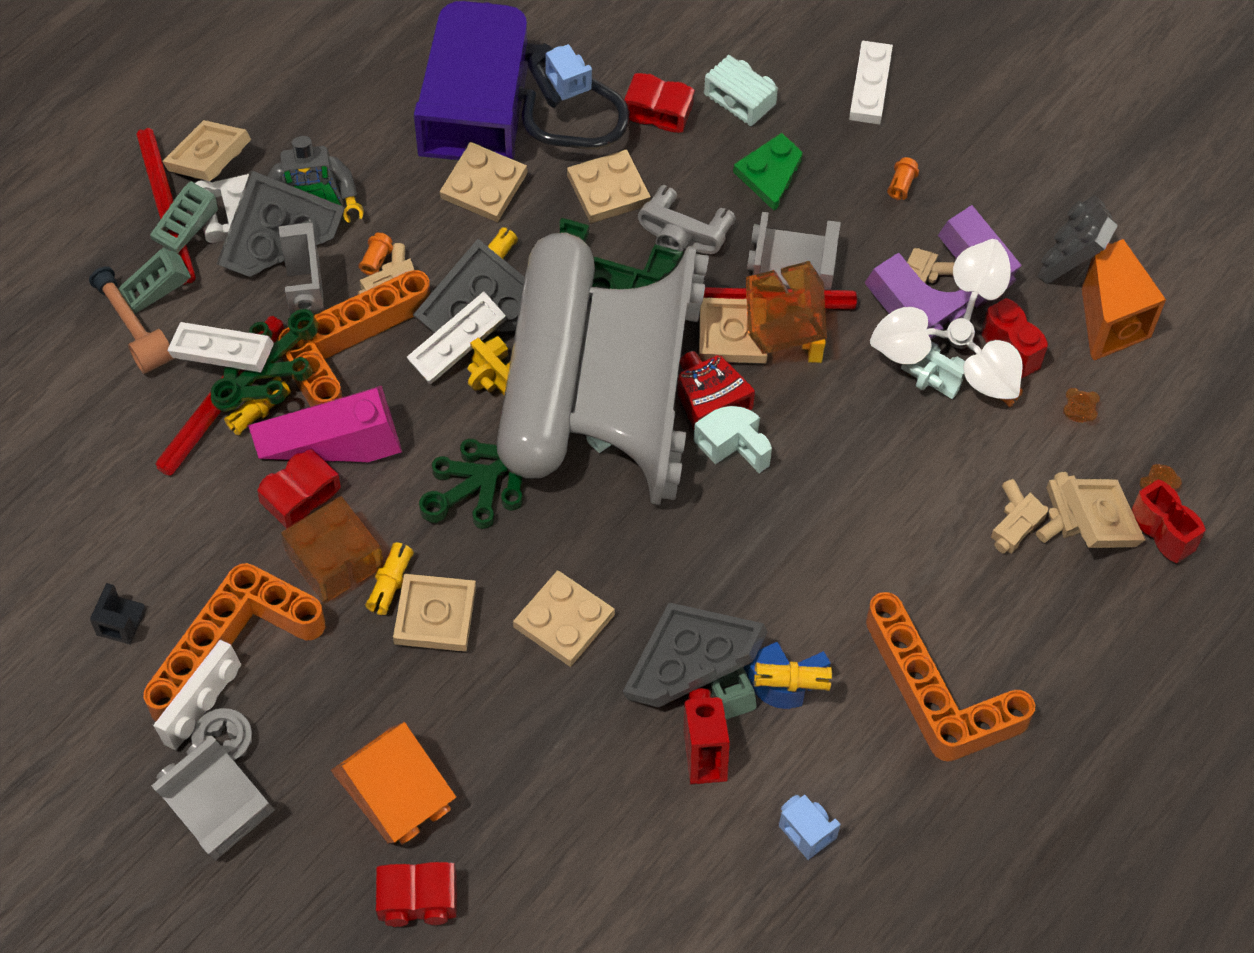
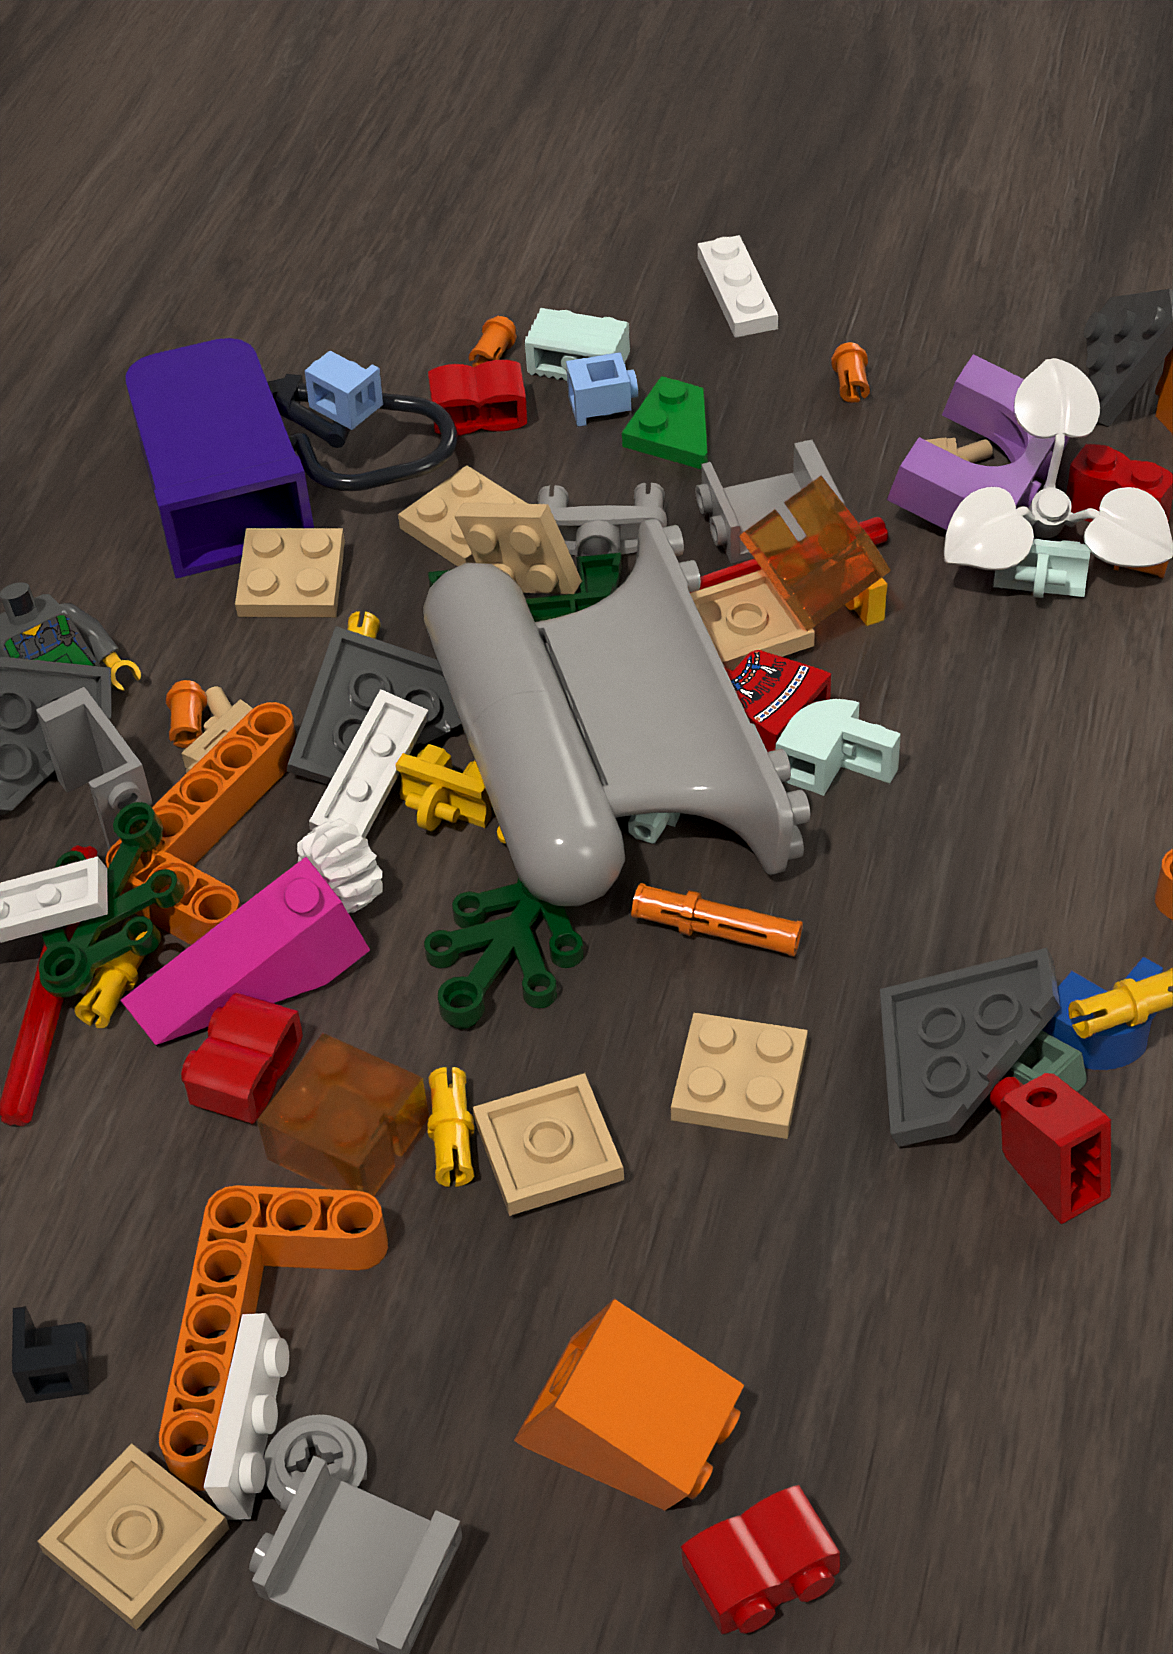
camera: 20 degrees left, 10 degrees down
(113, 732) = (133, 1535): none -> tan plate
(406, 395) = (343, 862): none -> white gear
(592, 509) = (716, 919): none -> orange pin
(615, 228) = (521, 543): none -> tan plate
(696, 61) = (497, 336): none -> orange pin
(737, 126) = (600, 386): none -> light blue brick

